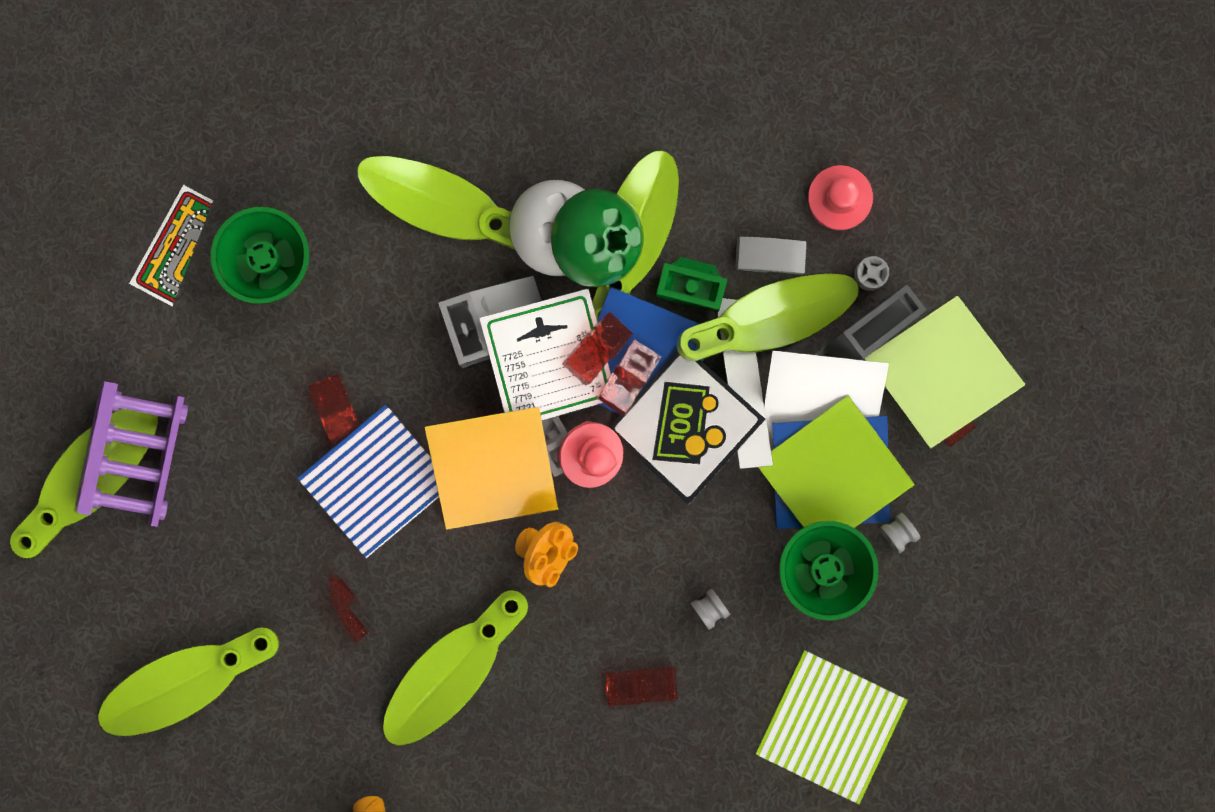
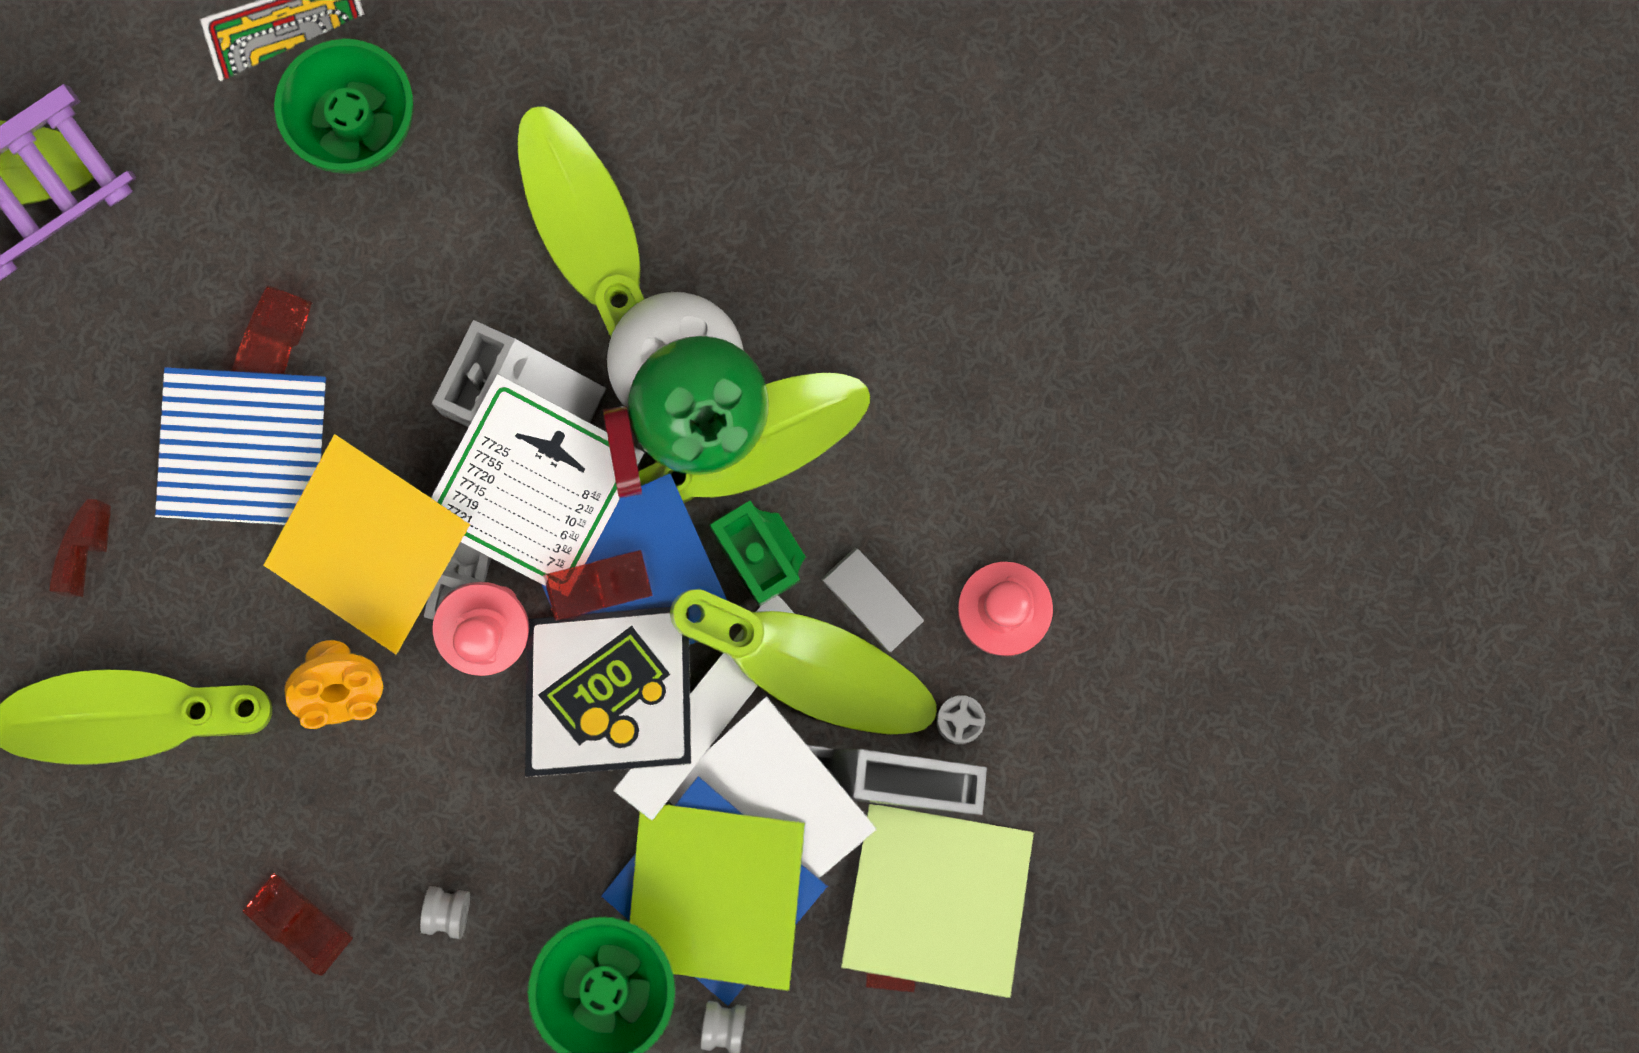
camera: 50 degrees right, 5 degrees down
(580, 297) = (622, 451): none -> dark red beam
(597, 348) = (592, 523): clear red slope -> none

